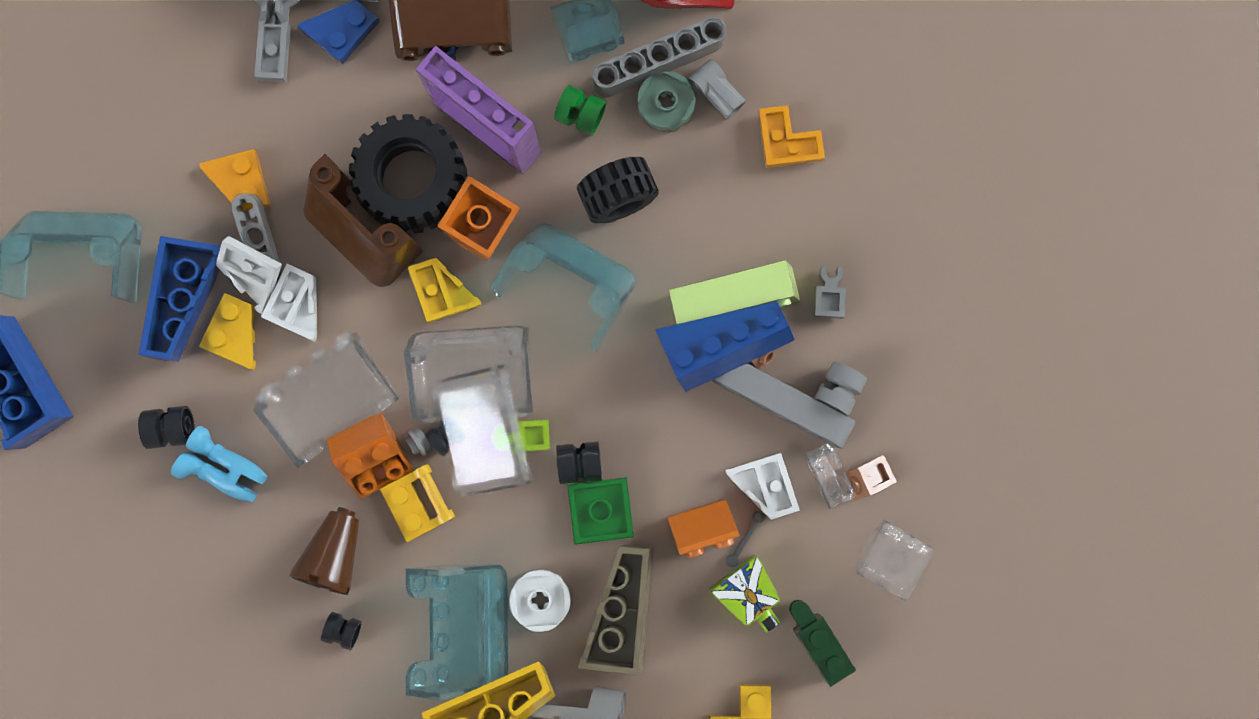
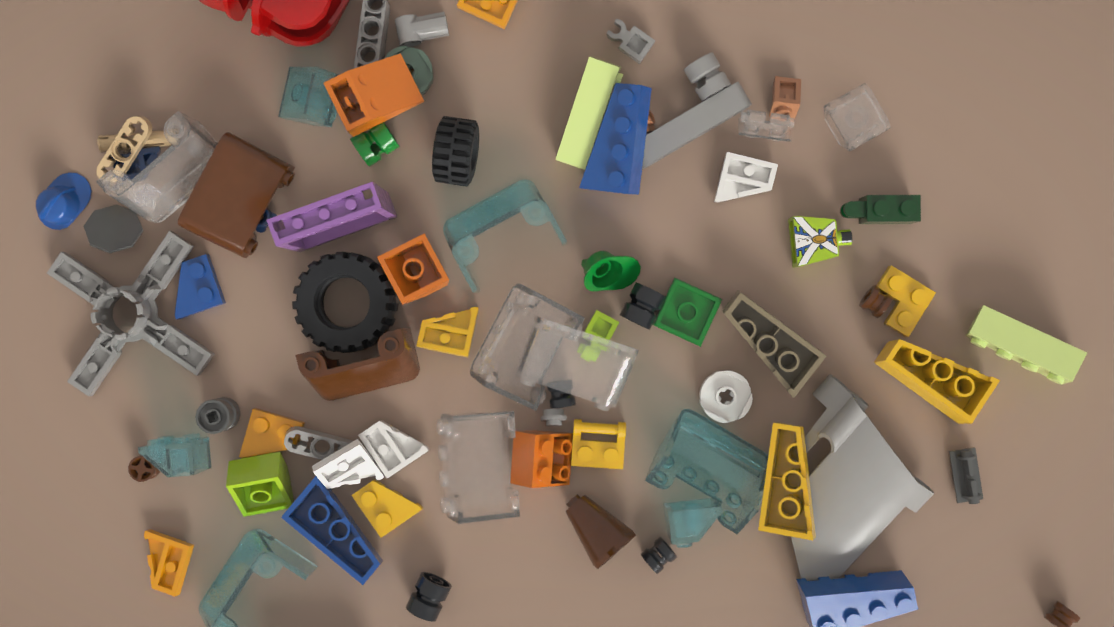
camera: 60 degrees left, 5 degrees up
(56, 157) = (167, 561): none -> light orange wing
(129, 77) = (139, 471): none -> reddish brown wheel
(165, 105) = (178, 455): none -> clear light blue slope
(184, 198) = (260, 484): none -> lime slope
(201, 443) = (457, 577): medium azure piece -> none
(227, 119) = (217, 415): none -> dark grey wheel
(393, 639) = (690, 520): none -> clear light blue slope
(592, 409) = (609, 272): none -> green piece
(623, 78) = (373, 93): none -> orange slope
(703, 527) = (748, 243): orange slope -> none
(725, 693) = (876, 301): none -> reddish brown wheel
(732, 560) = (782, 237): dark grey hinge -> none

